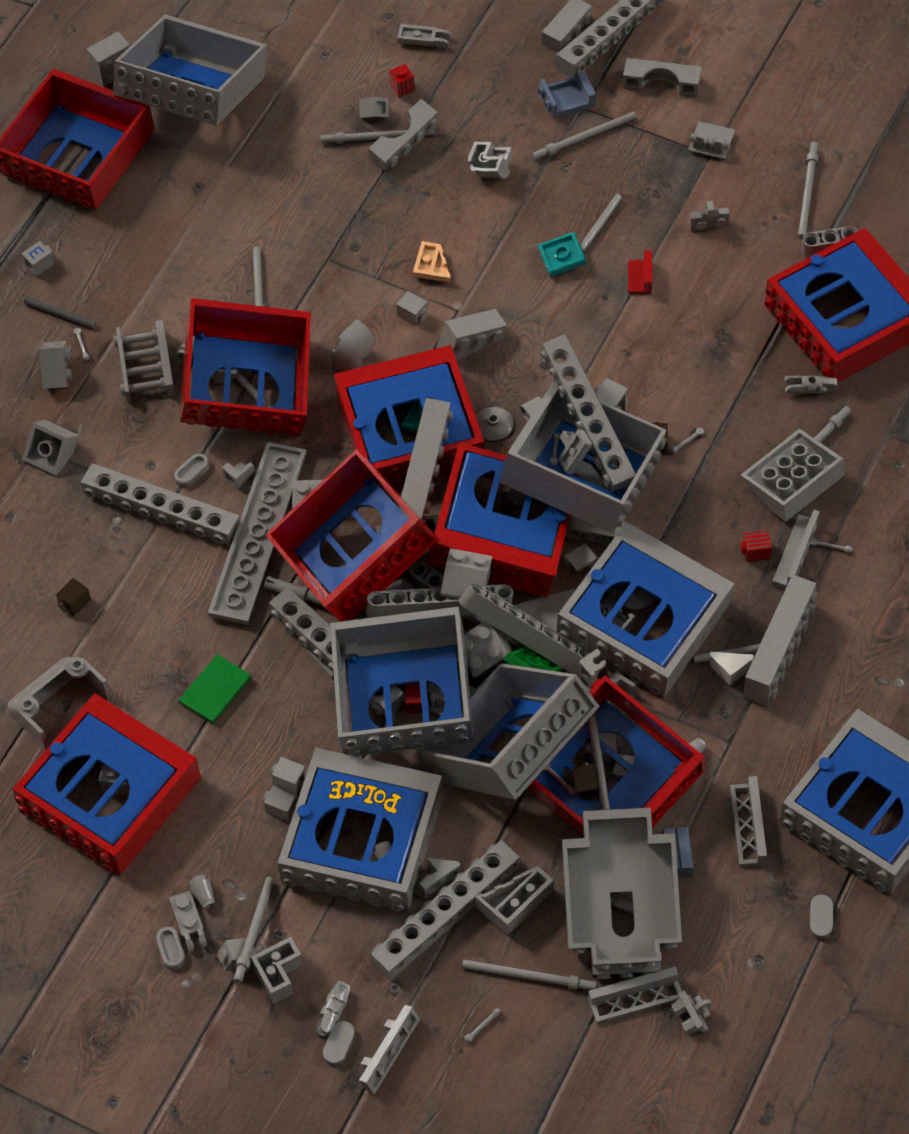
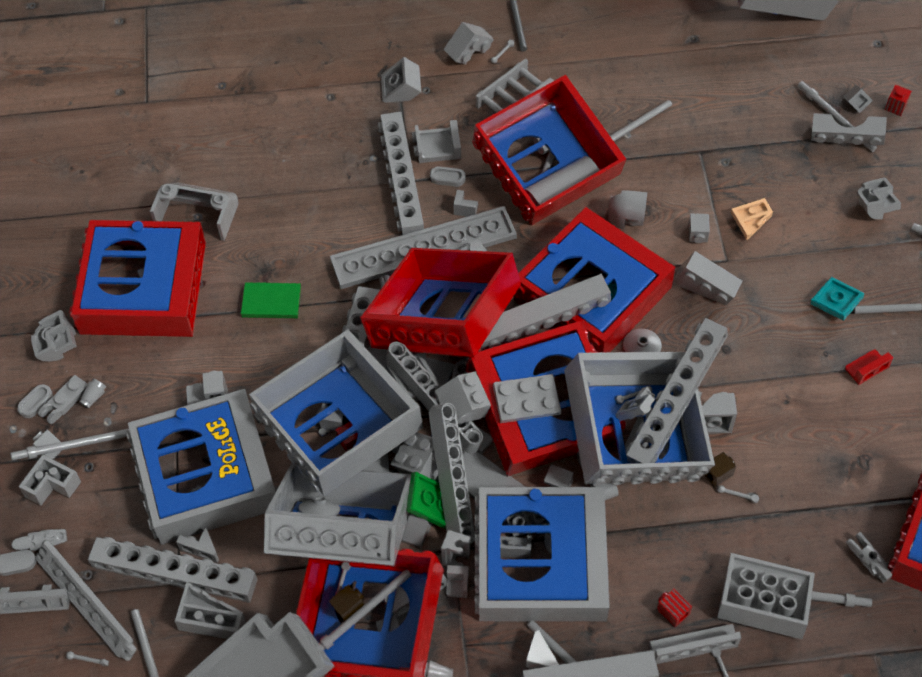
camera: 55 degrees right, 0 degrees up
(73, 597) = (286, 168): dark brown brick -> none
(114, 893) = (53, 337): none -> light grey brick
(148, 455) = (437, 143): none -> light grey panel
(283, 375) = (561, 180): none -> light grey brick
(424, 997) = (86, 601): none -> light grey hinge
(480, 752) = (320, 506): none -> light grey dish
(504, 526) = (526, 398): none -> light grey plate

